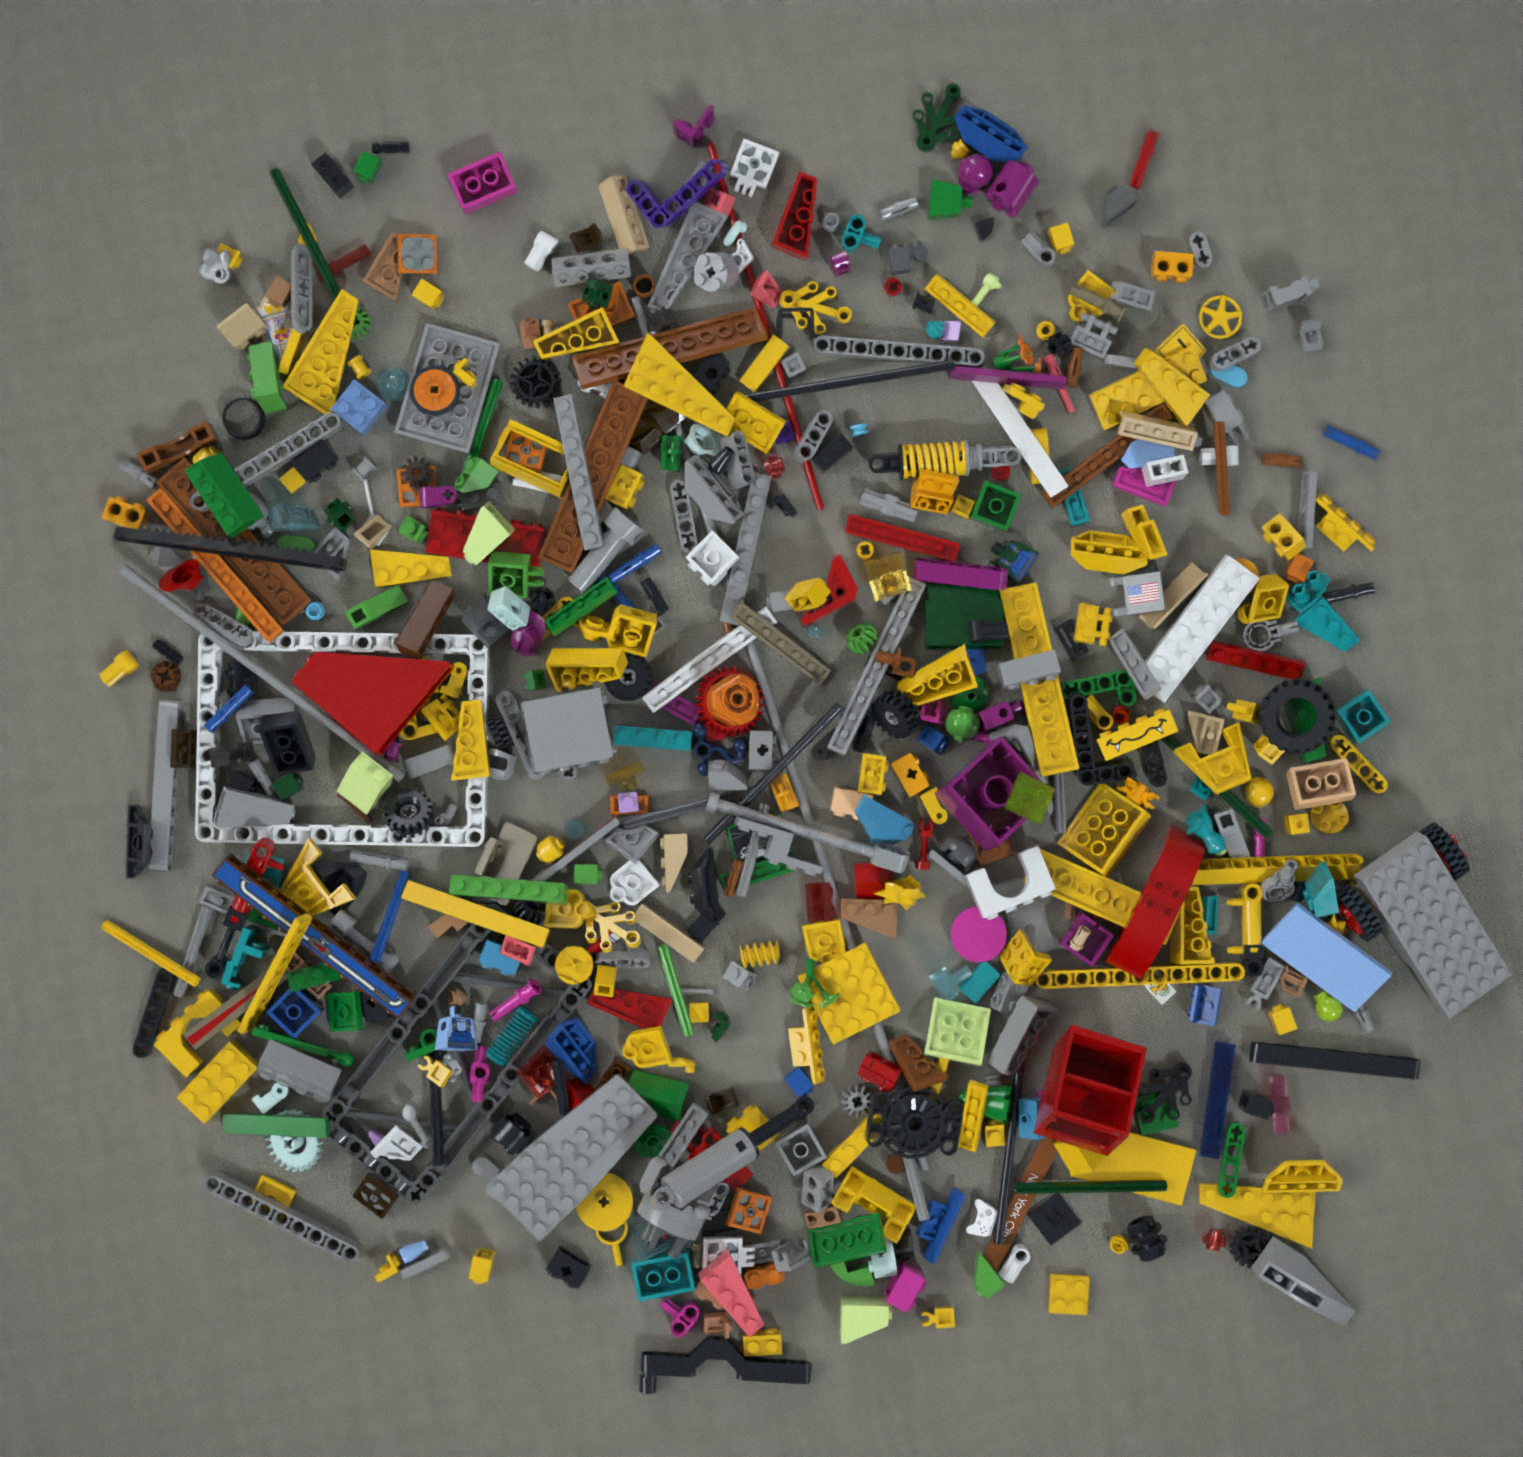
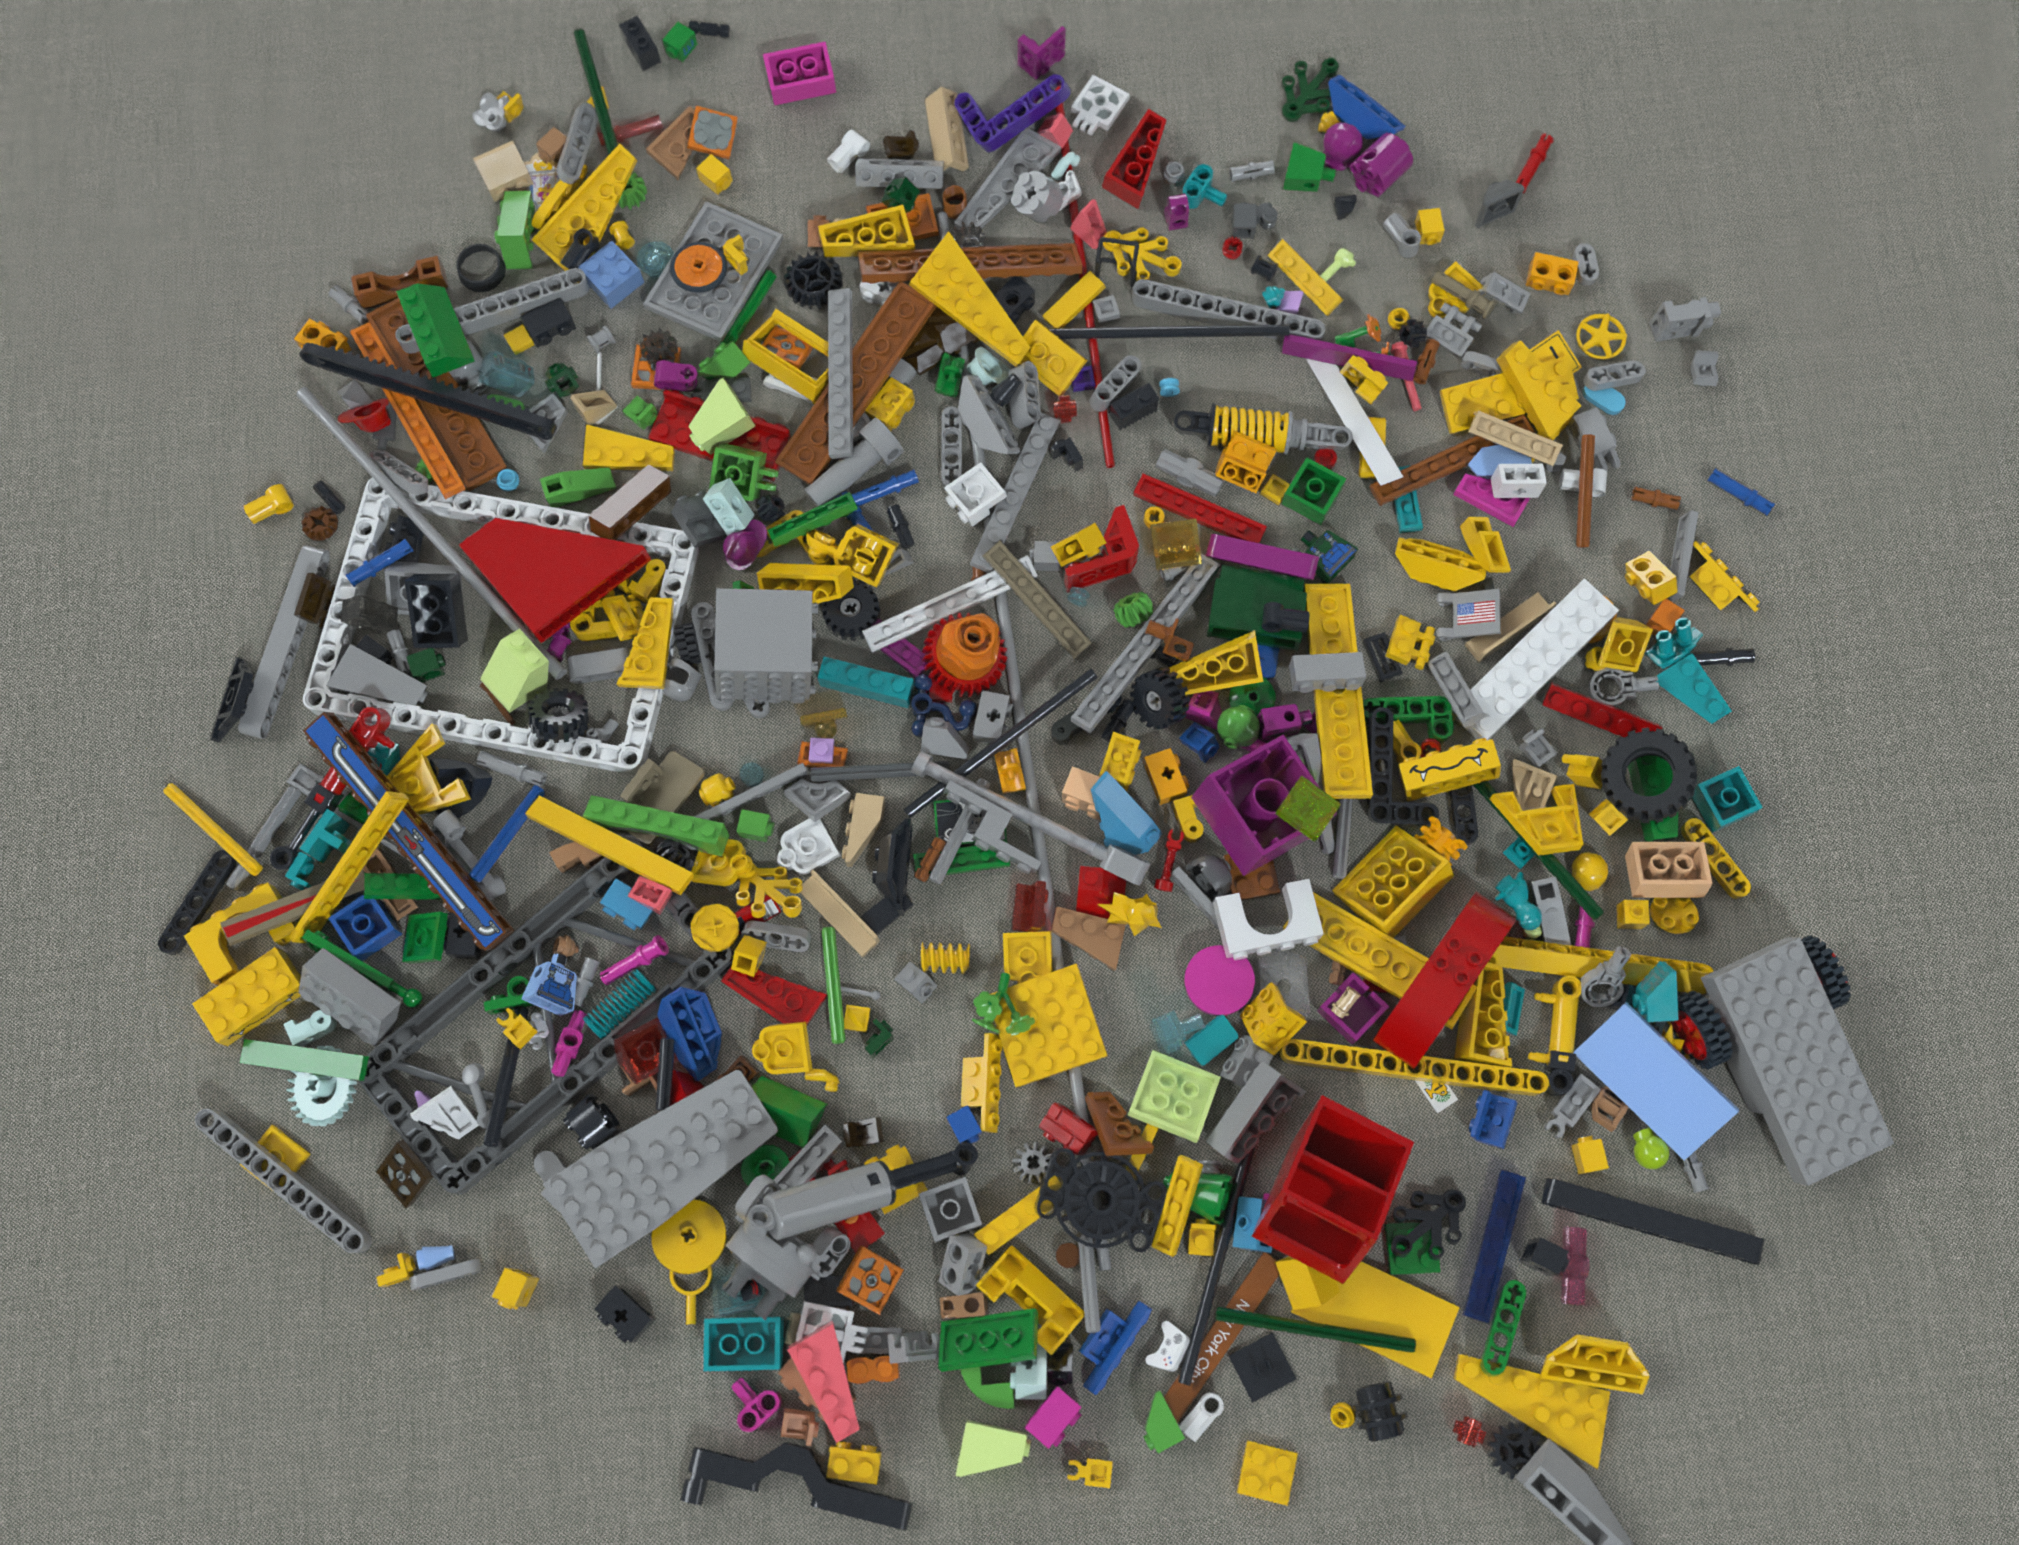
camera: 15 degrees right, 15 degrees down
(327, 394) = (578, 252): none -> black piece

